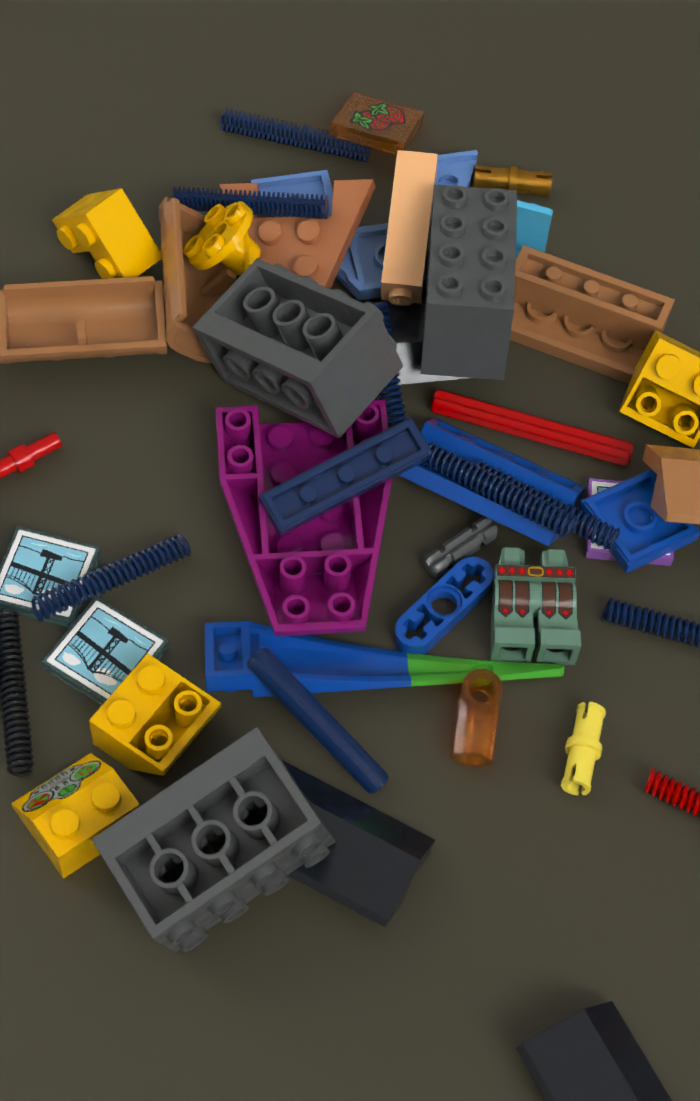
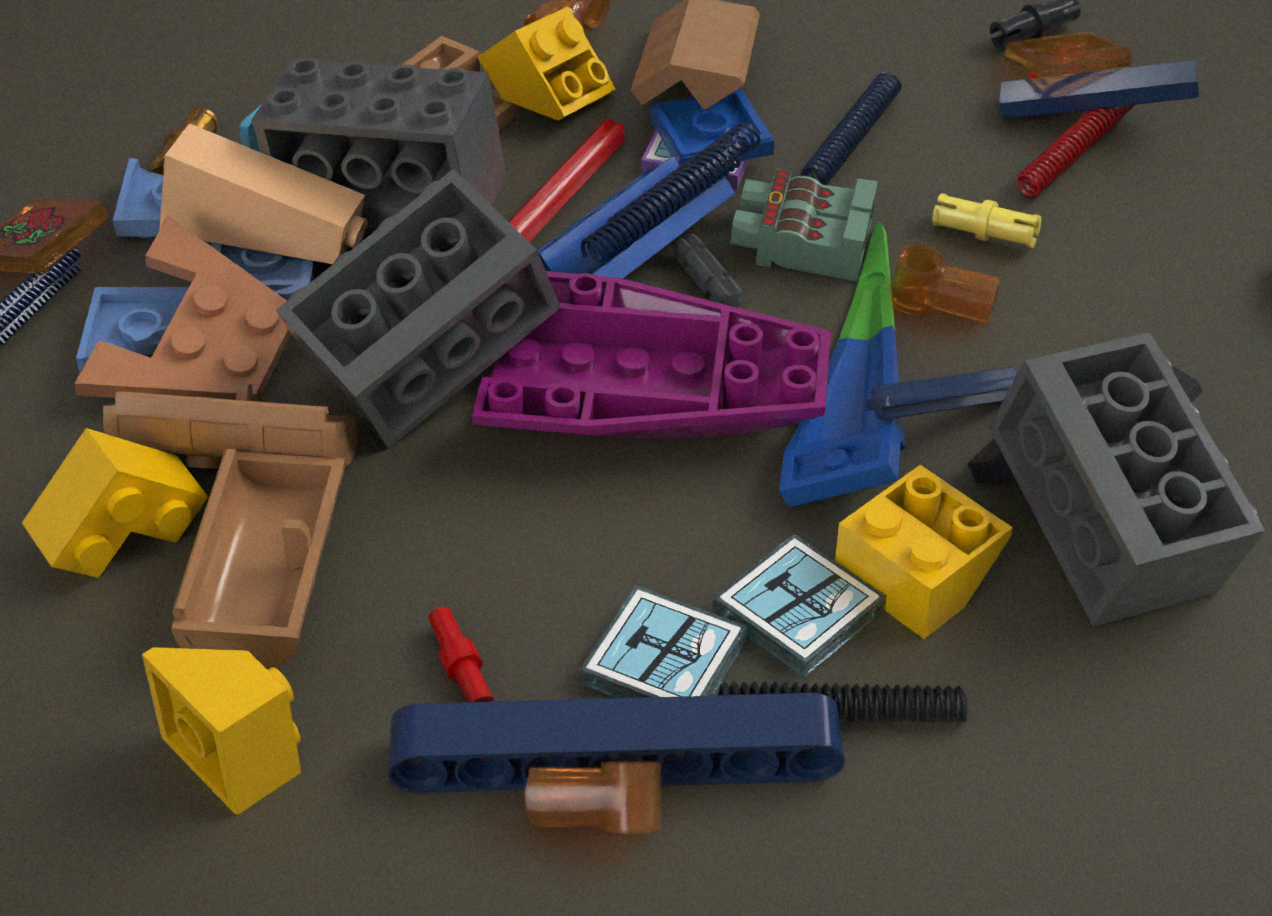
camera: 75 degrees left, 15 degrees down
(73, 810) = (1037, 643): yellow slope -> none
(111, 579) = (703, 569): dark blue piece -> none
(224, 239) = (191, 357): yellow plate -> none
(259, 204) = (133, 345): dark blue axle -> none
(345, 476) = (624, 309): dark blue tile -> none
(448, 588) = (764, 275): blue beam -> none

